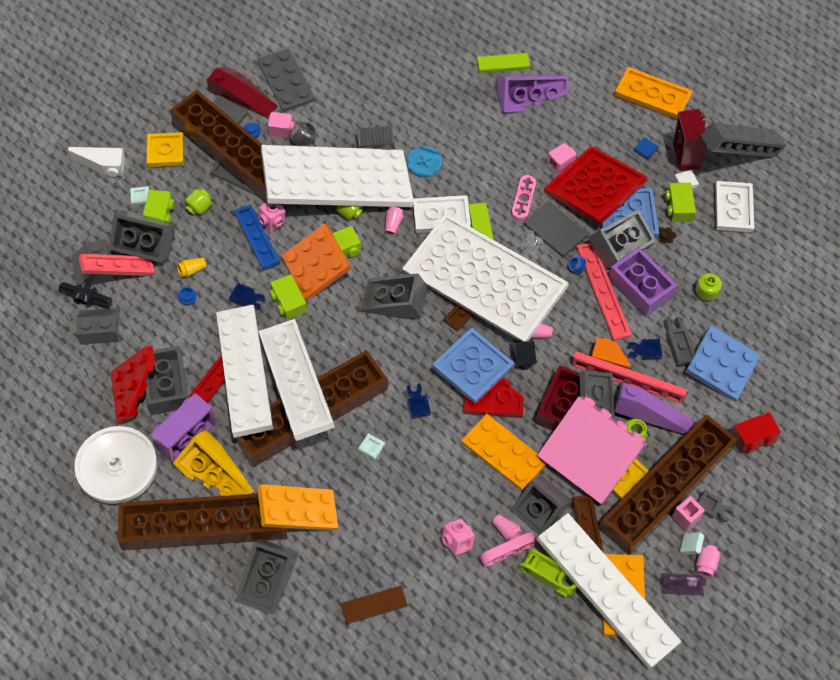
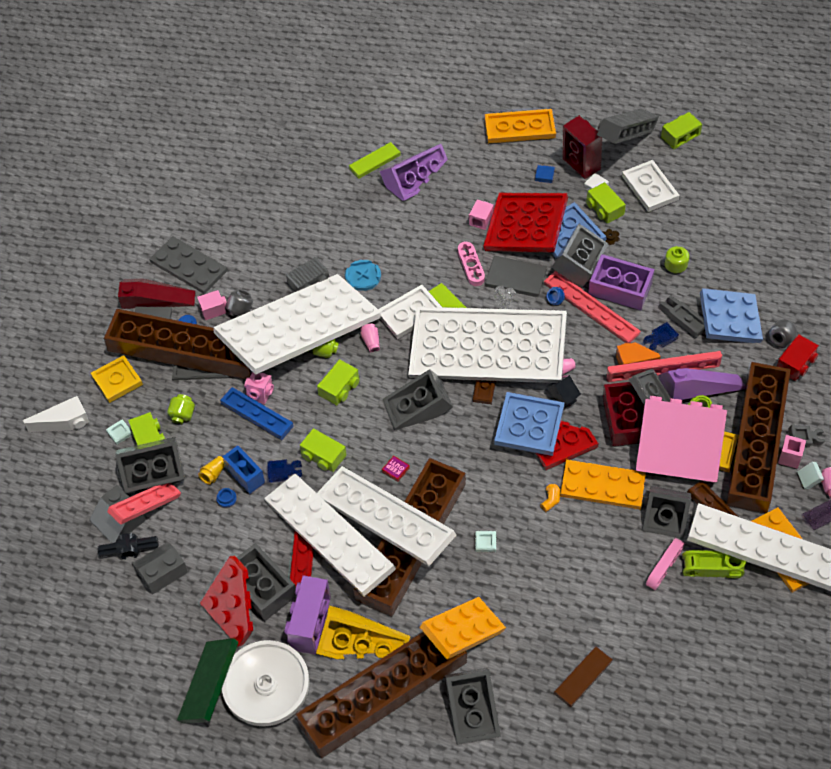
camera: 25 degrees left, 5 degrees down
(73, 438) = (207, 681): none -> dark green tile
(213, 279) = (243, 469): none -> blue brick
(316, 261) = (328, 405): orange plate -> none
(339, 344) = (395, 468): none -> tile
(417, 404) = (501, 483): clear blue plate -> none
(453, 440) = (553, 497): none -> light orange arm
(458, 537) = (617, 576): bright pink brick -> none
(507, 528) = (651, 546): bright pink cone -> none
(759, 403) = (782, 333): none -> flat silver head
(799, 168) = (681, 130): none -> lime brick

